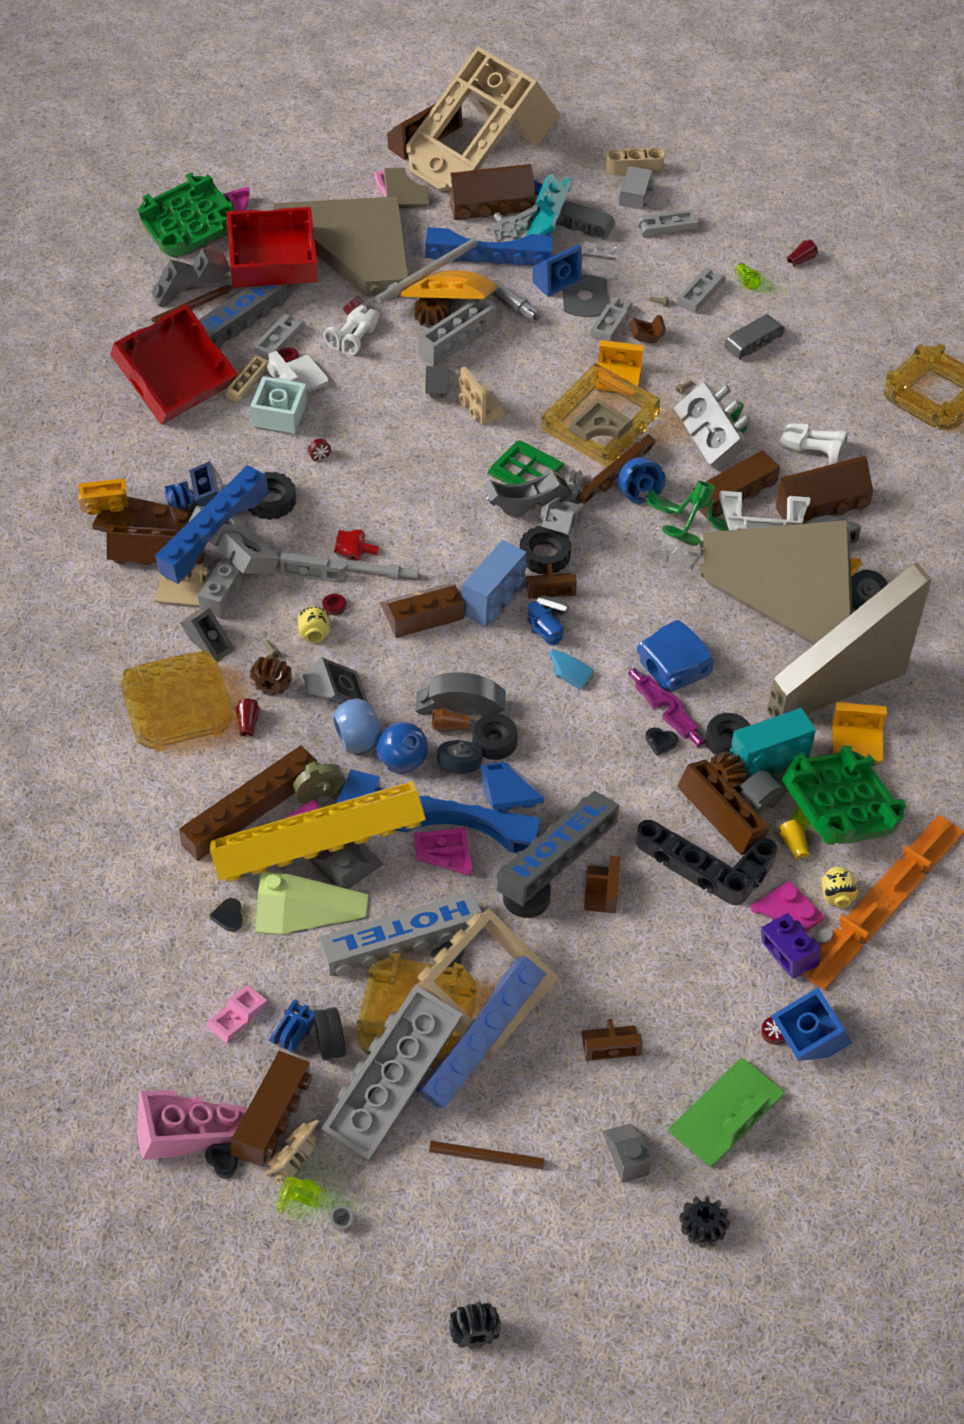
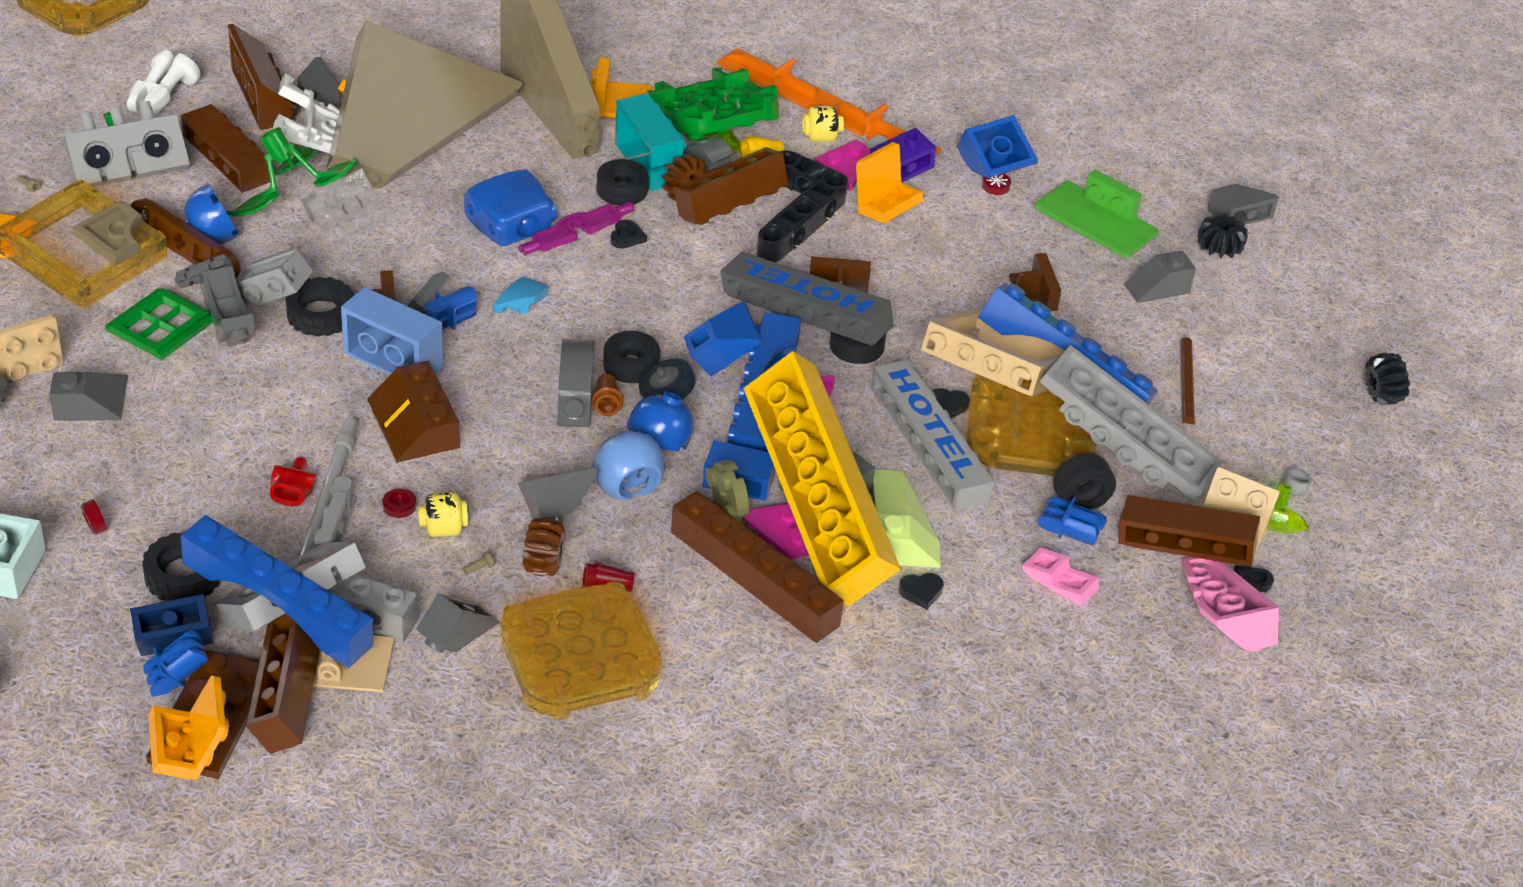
camera: 95 degrees left, 10 degrees down
(444, 435) = (87, 396): none -> dark grey slope
(734, 923) = (880, 185): none -> light orange bracket
(756, 1245) = (1243, 202): none -> dark grey slope

